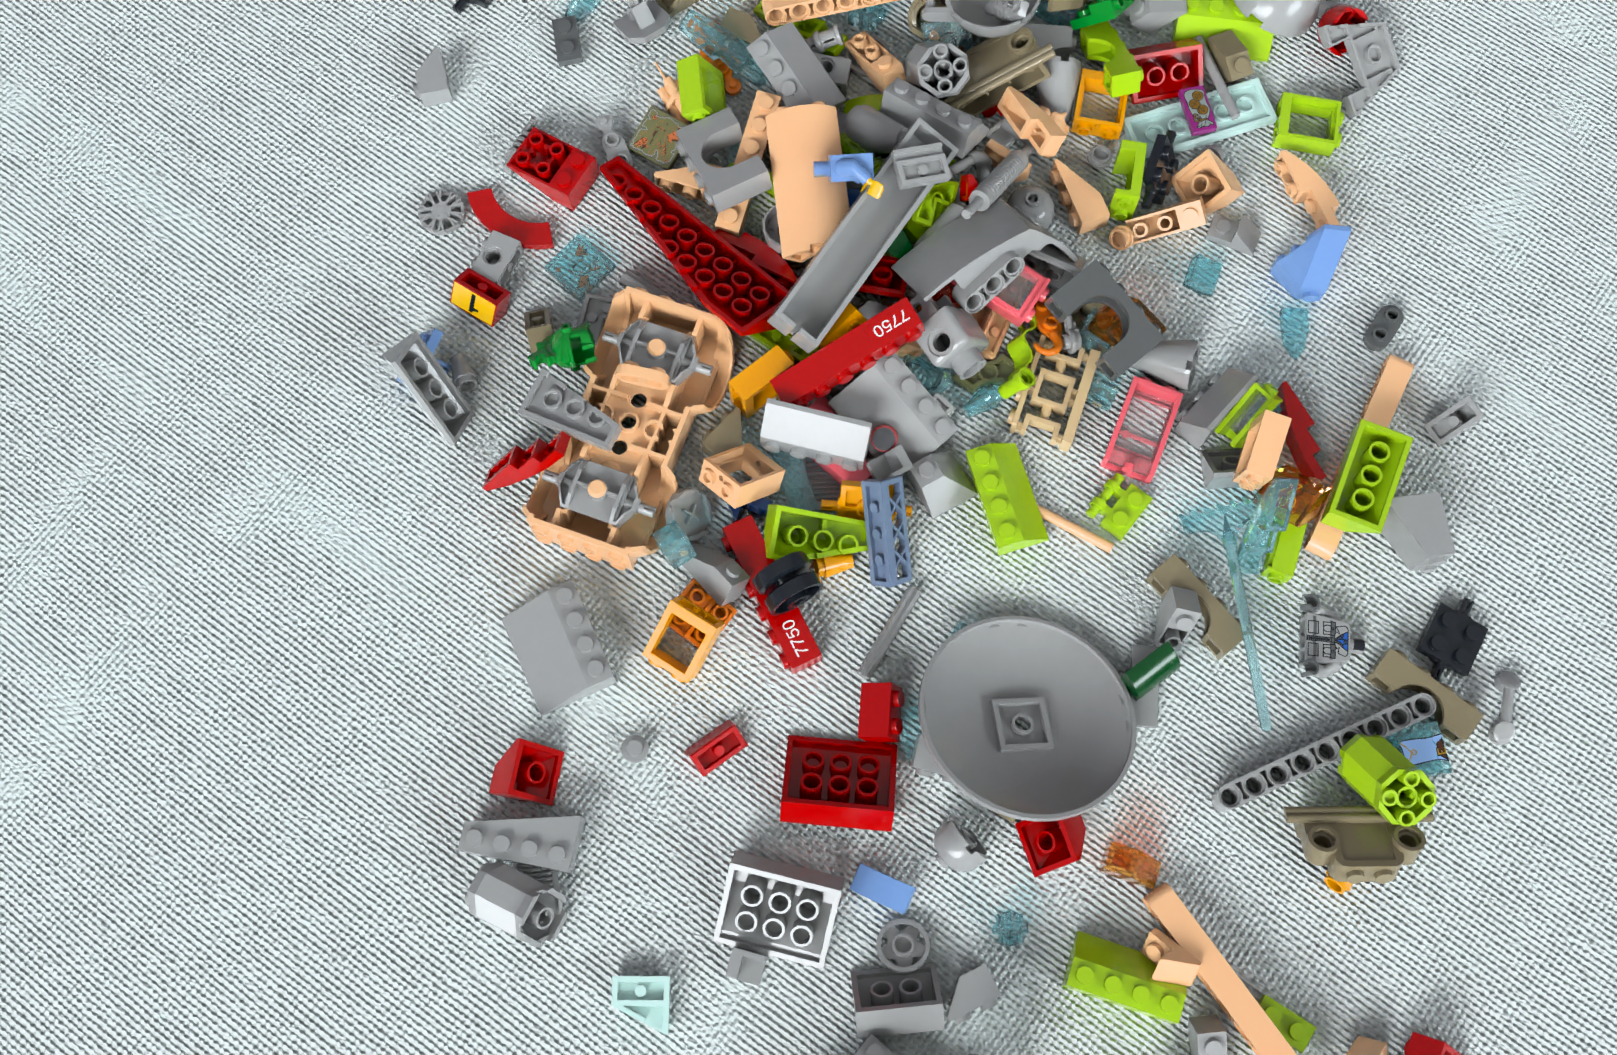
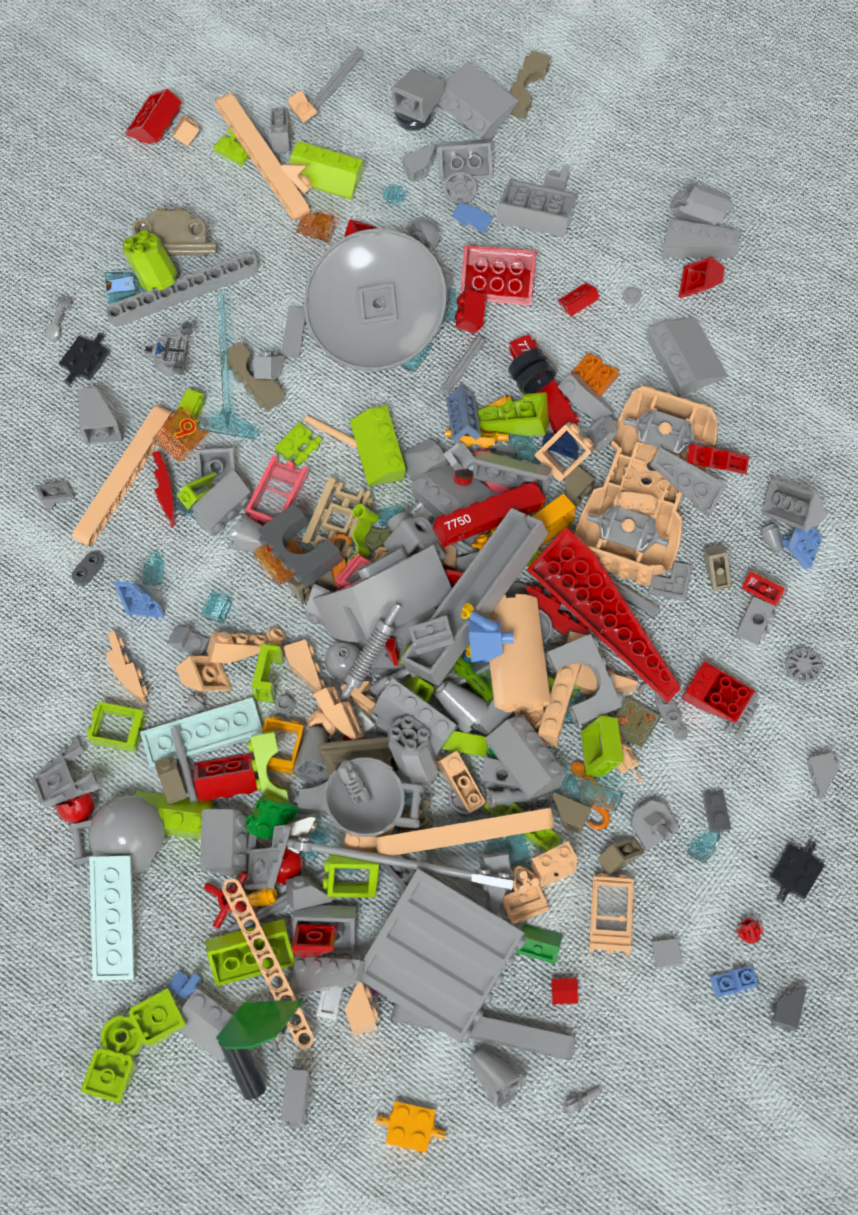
camera: 175 degrees left, 5 degrees down
(495, 218) = (754, 653): red tile -> none
(566, 348) = (695, 536): green helmet -> none
(579, 267) = (691, 621): clear light blue tile -> none
(644, 999) = (619, 162): light aqua wing -> none
(674, 544) = (610, 403): clear light blue brick -> none
(697, 618) = (603, 363): light orange window -> none
(1151, 671) = (291, 333): dark green brick -> none
(1159, 170) = (241, 677): black plate -> none
(1197, 110) = (203, 734): tile -> none
(1261, 450) = (200, 447): light nougat window -> none
(1267, 519) = (202, 408): clear light blue slope -> none
(1367, 479) = (127, 439): lime slope -> none
(1454, 715) = (127, 334): dark tan arch -> none

